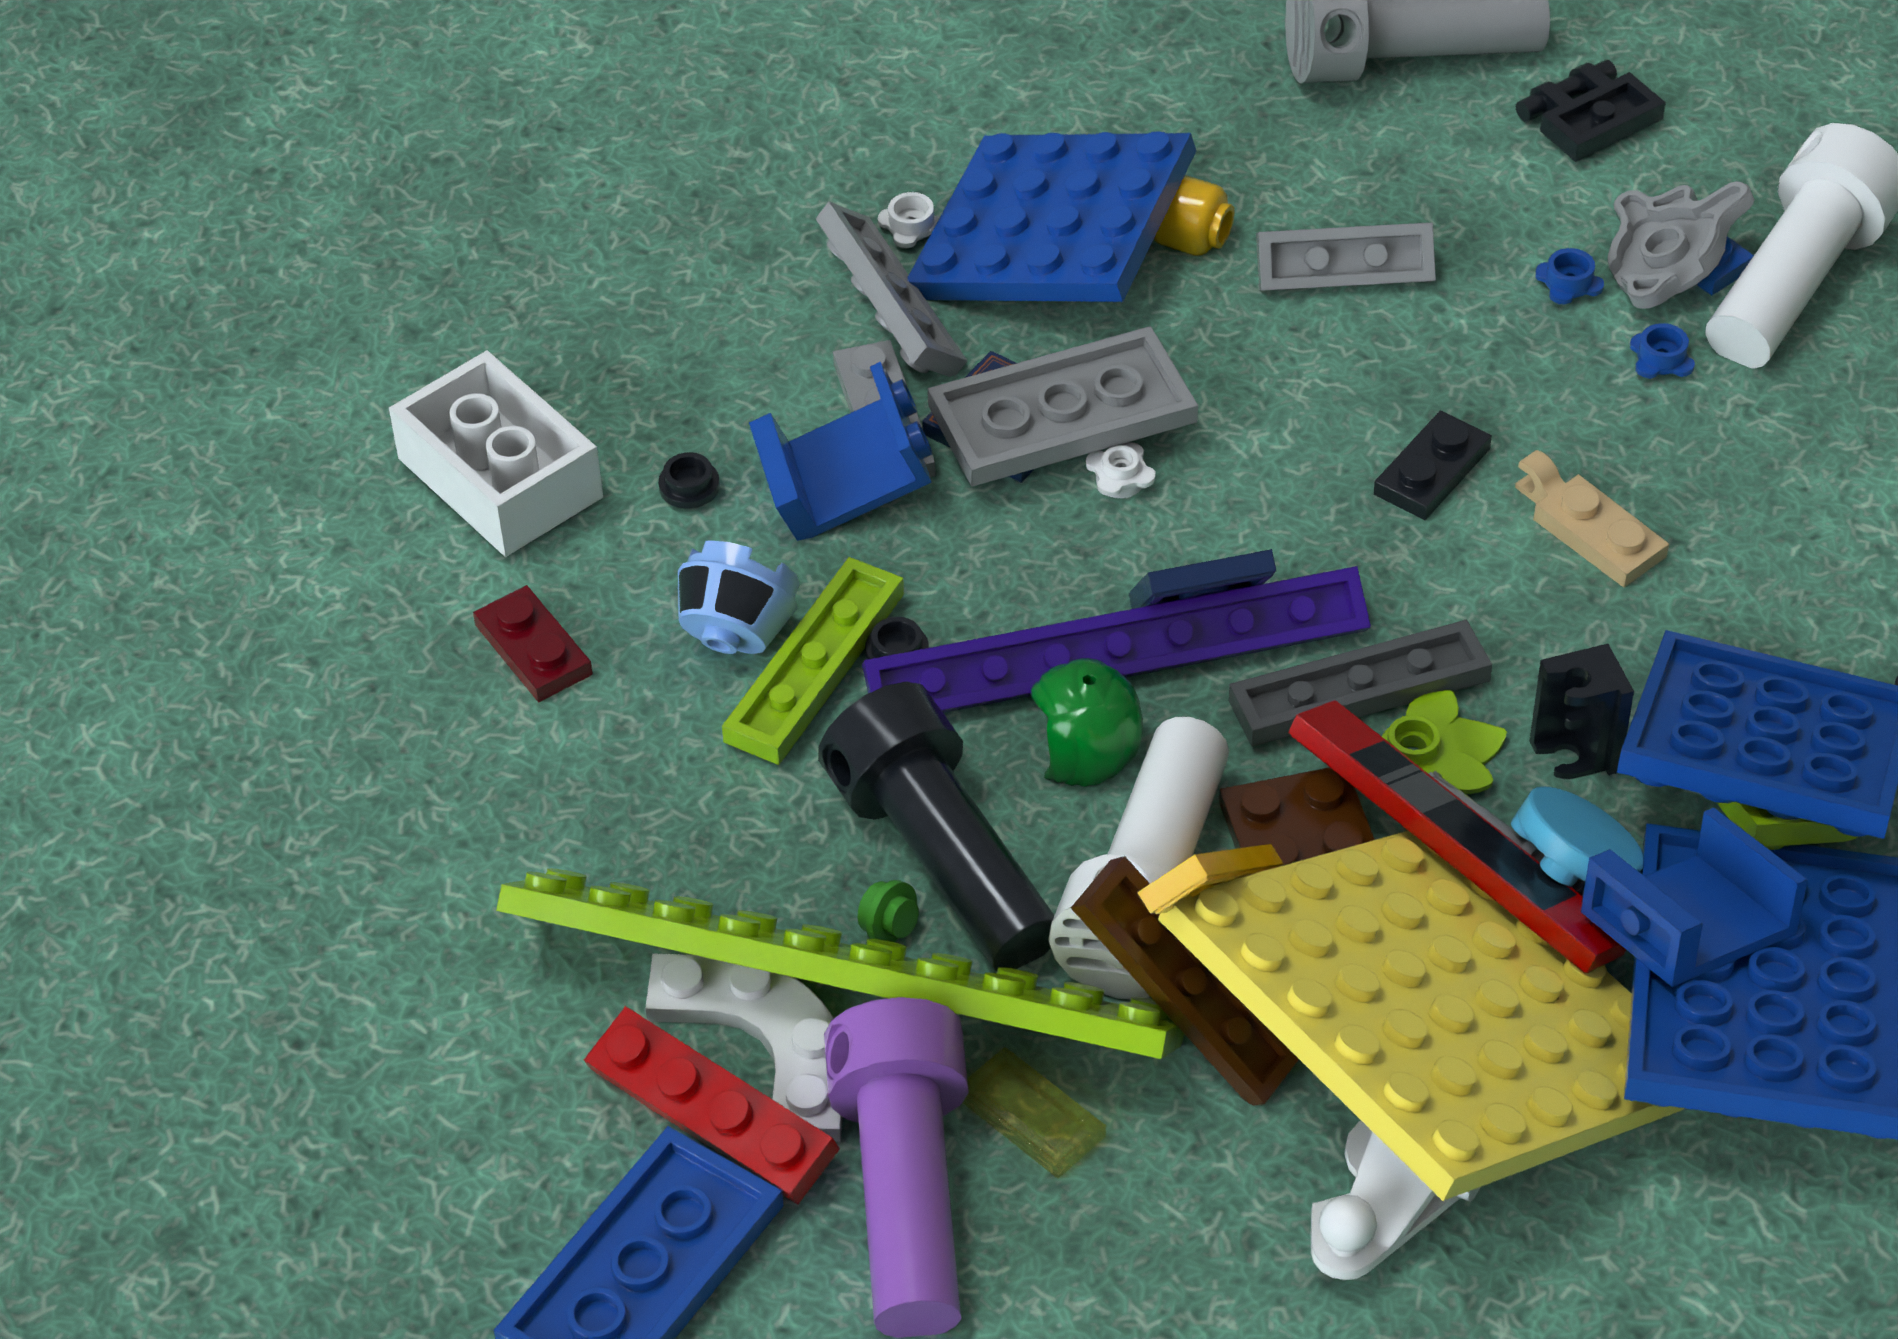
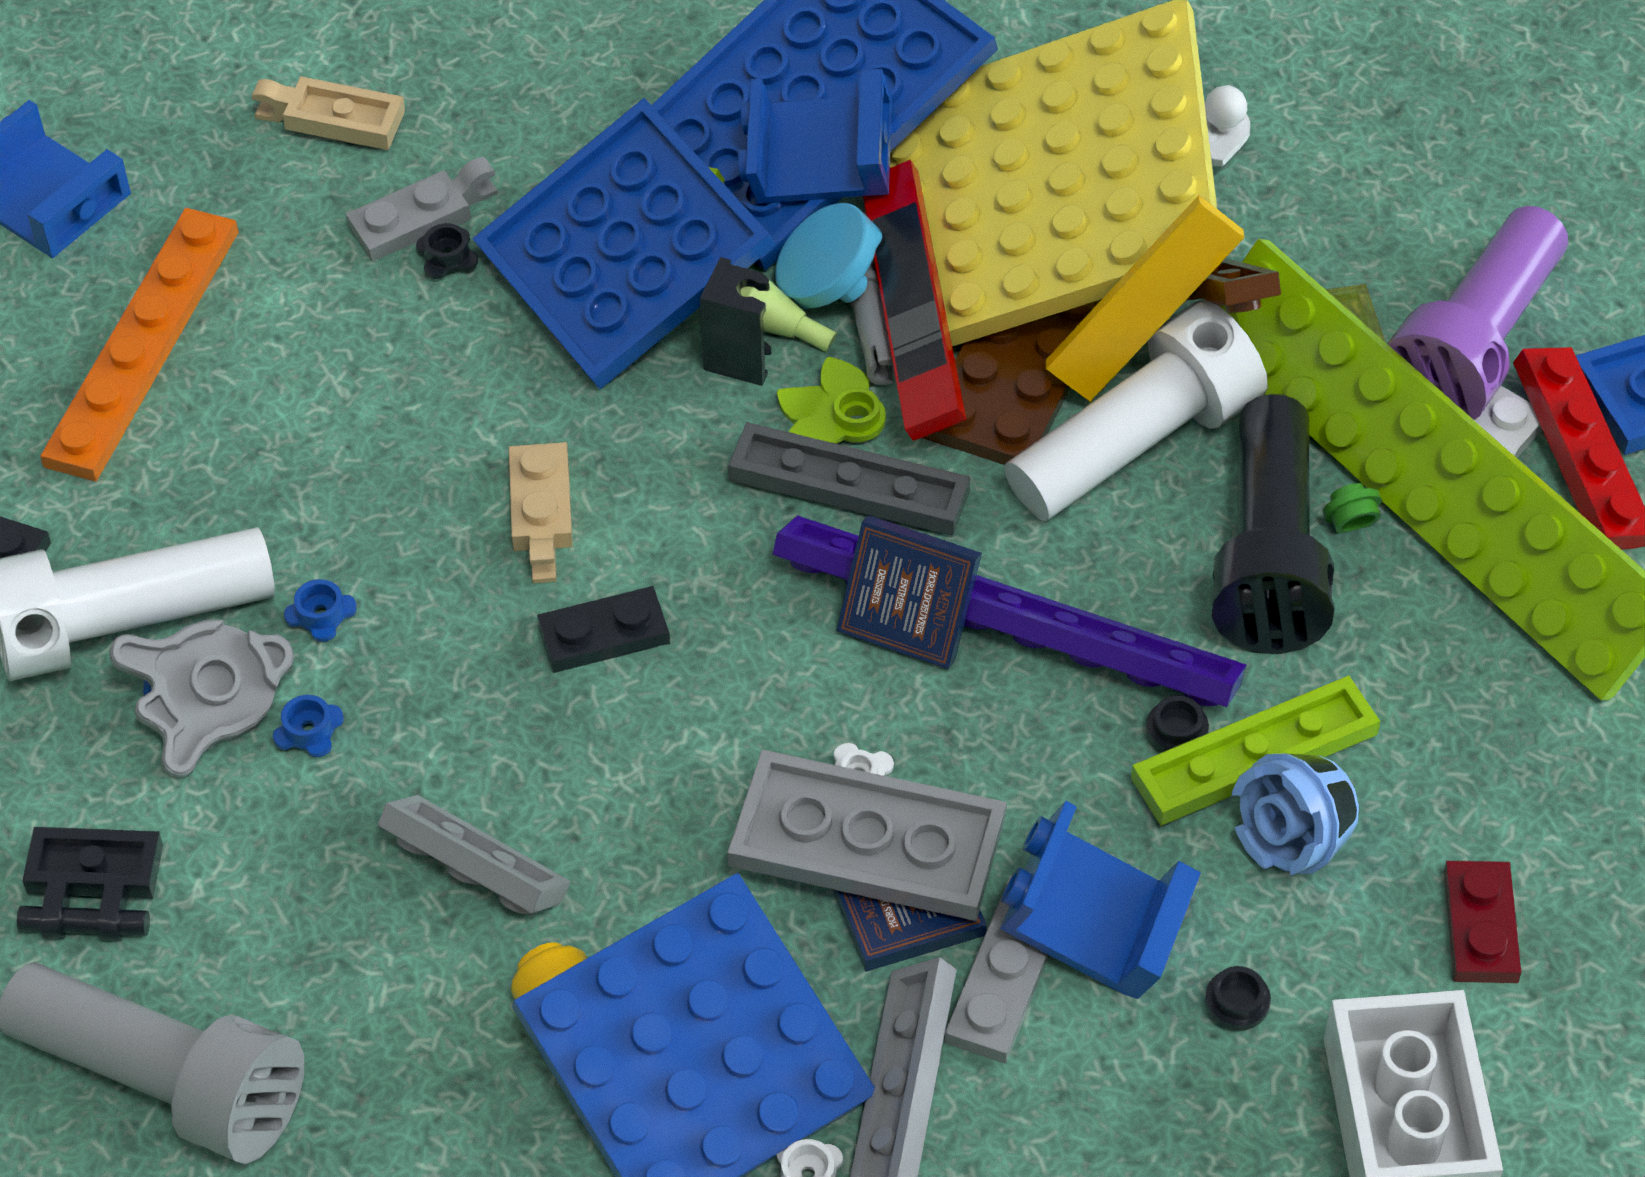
camera: 145 degrees left, 5 degrees up
(1090, 722) = (1088, 549): green piece -> none
(1591, 780) = (789, 320): none -> yellowish green cone

